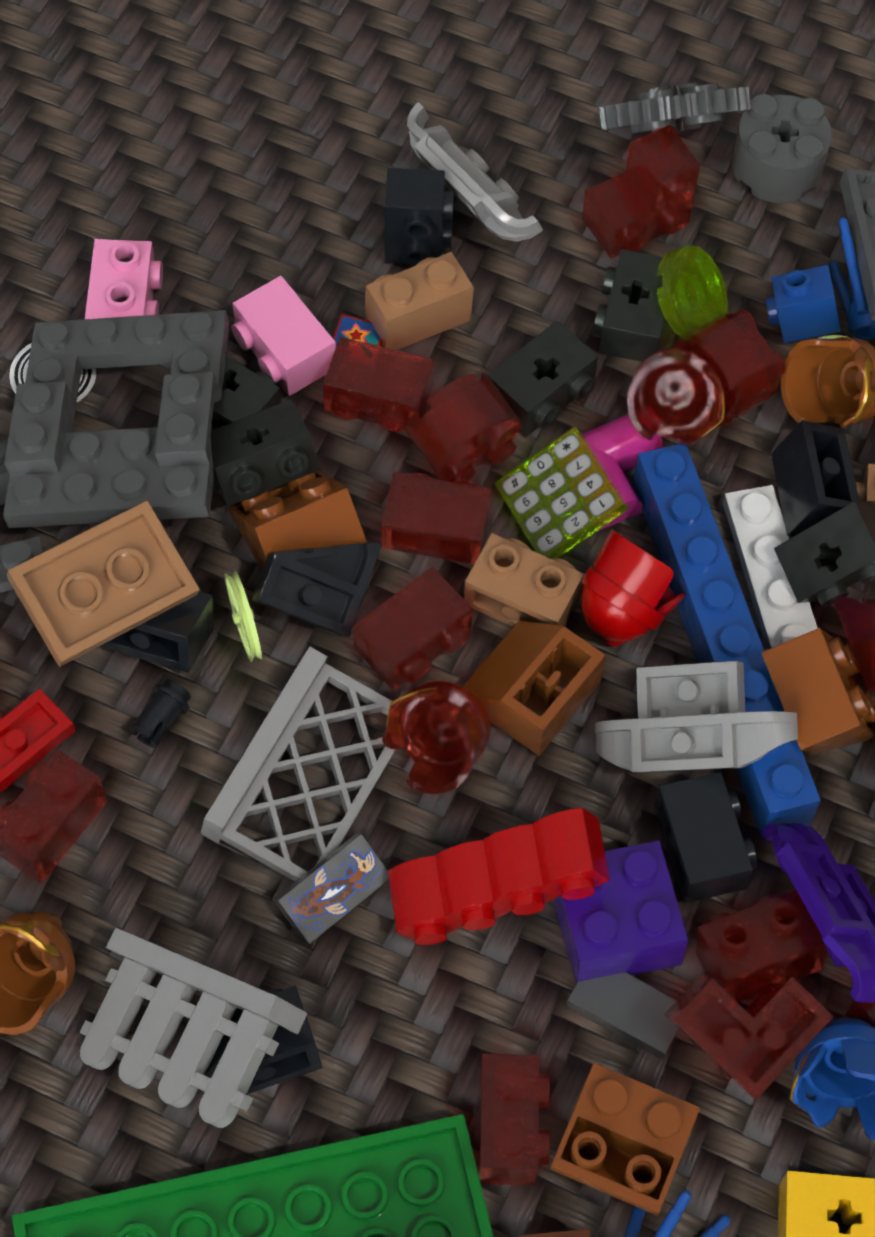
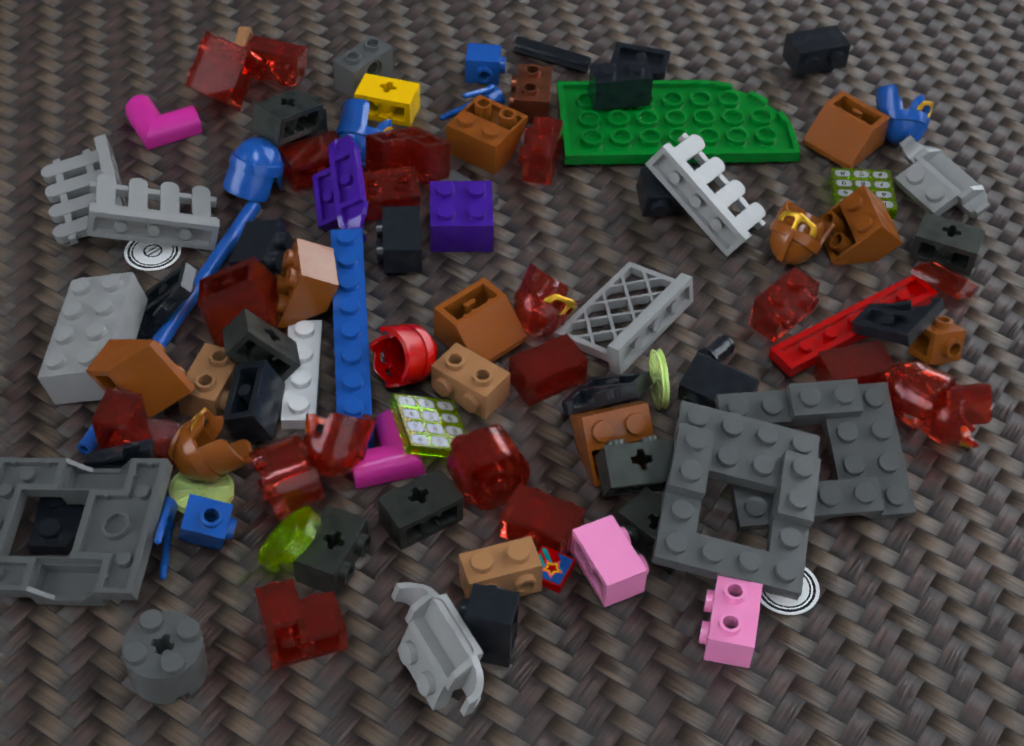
camera: 170 degrees left, 15 degrees down
(102, 583) = (752, 368): medium nougat plate -> none
(332, 888) = (619, 256): tile -> none
(436, 517) = (529, 426): clear red brick -> none
(499, 875) = (526, 221): red brick -> none
(684, 109) = (213, 665): dark grey gear -> none
(692, 722) = (392, 270): light grey plate -> none

